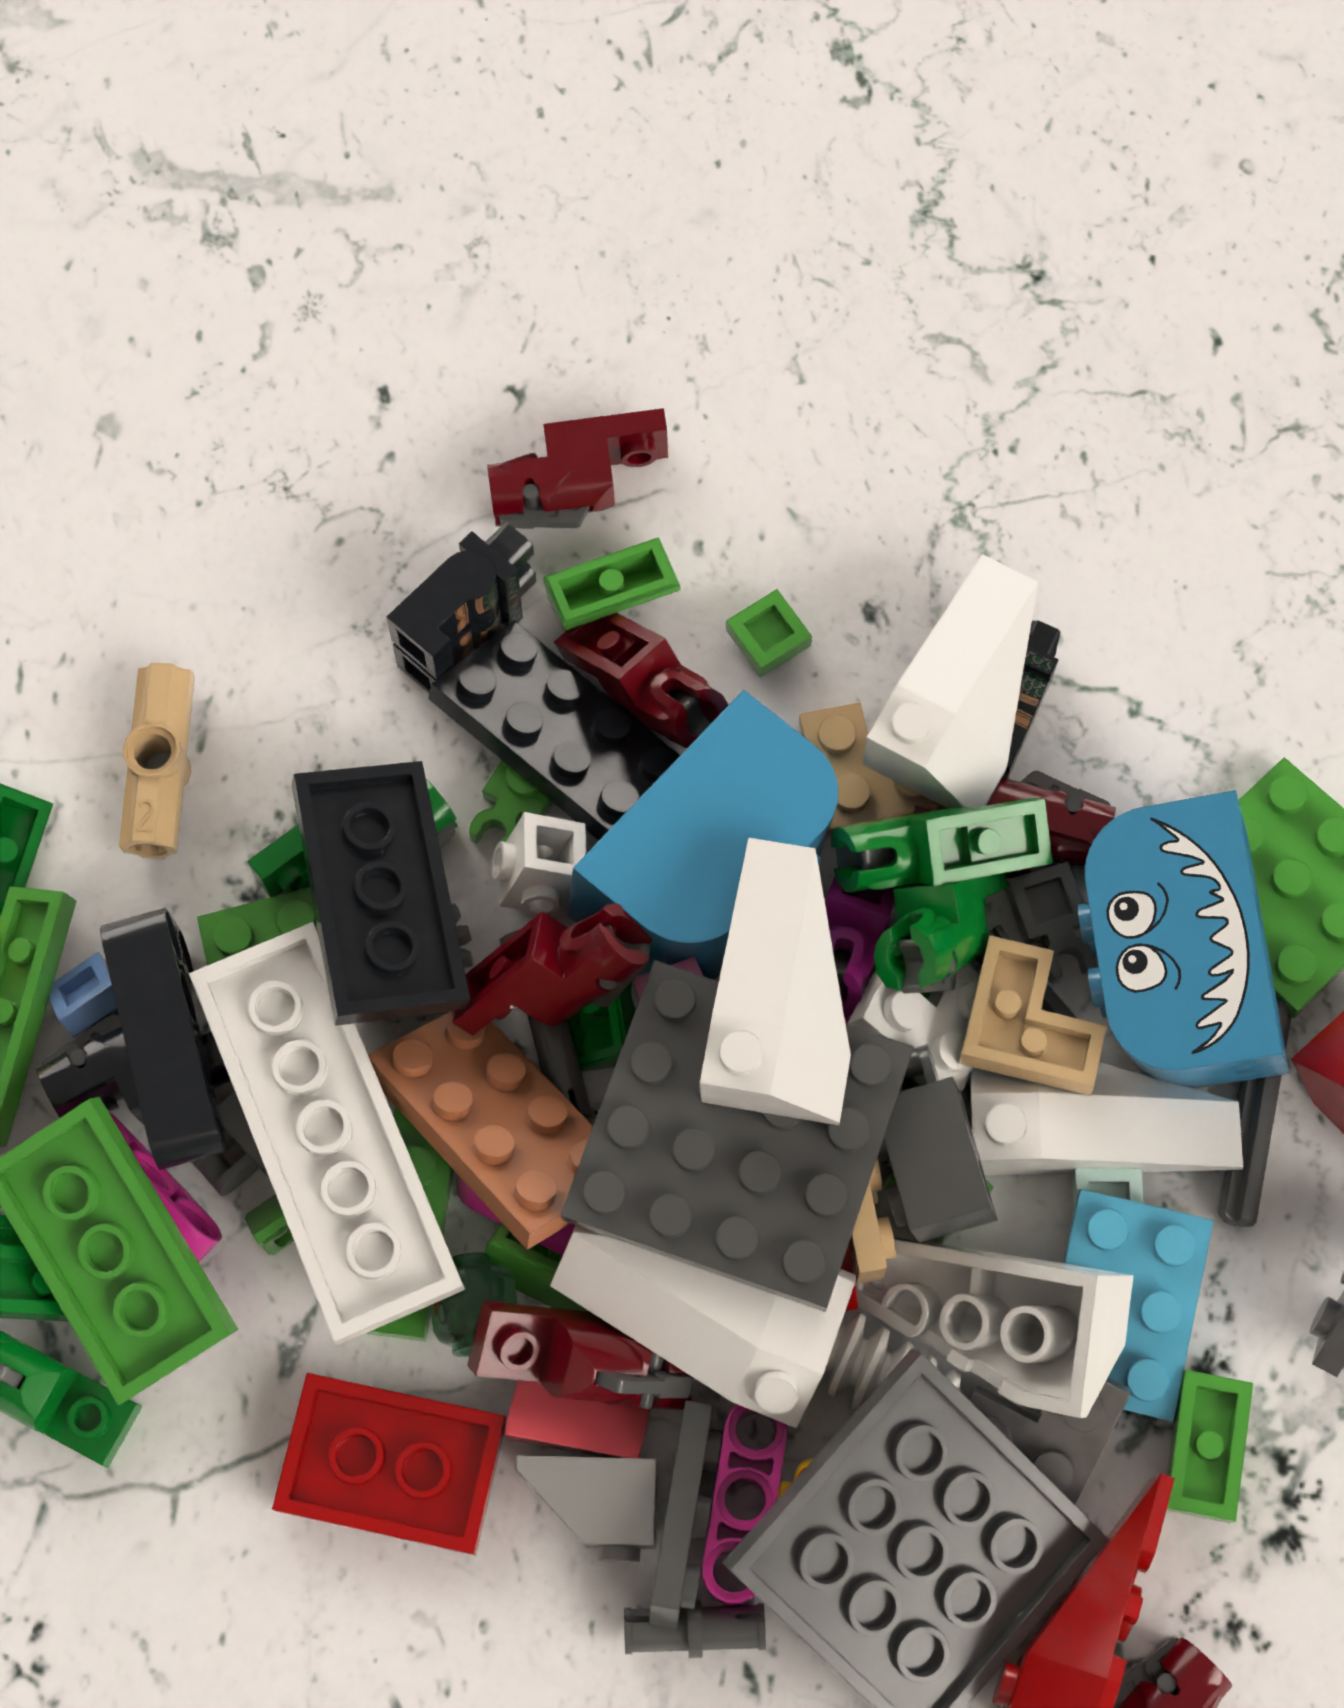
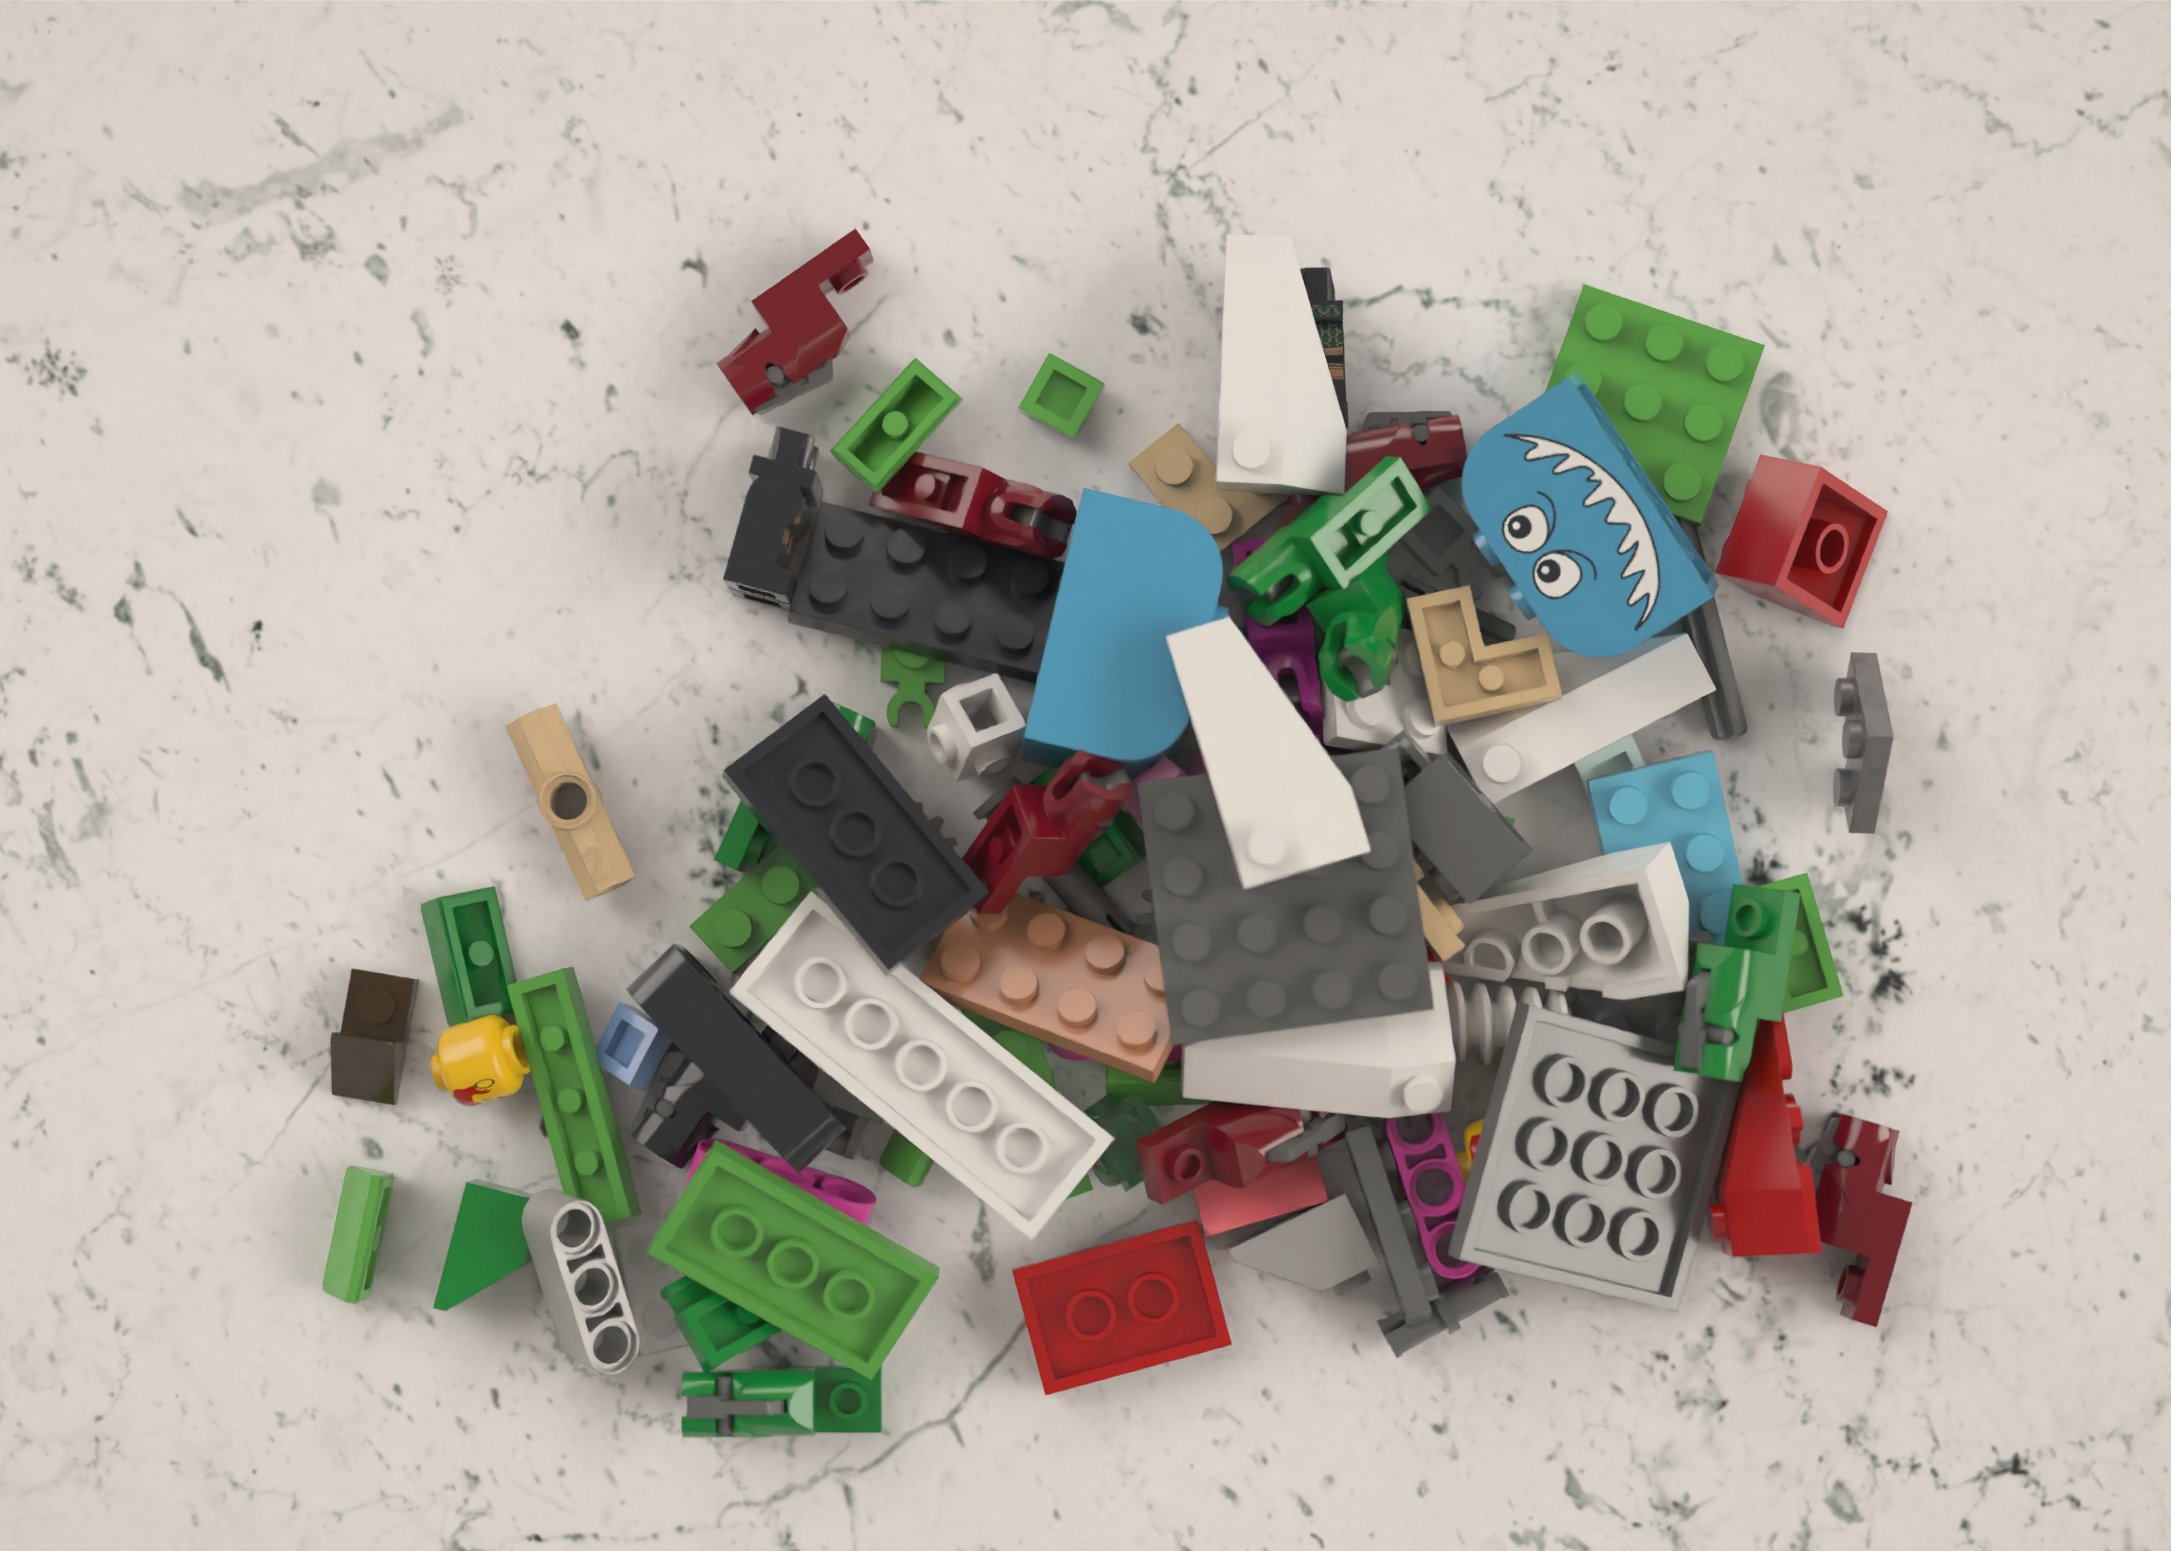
camera: 25 degrees left, 15 degrees up
(1134, 1448) = (1737, 983): none -> green plate

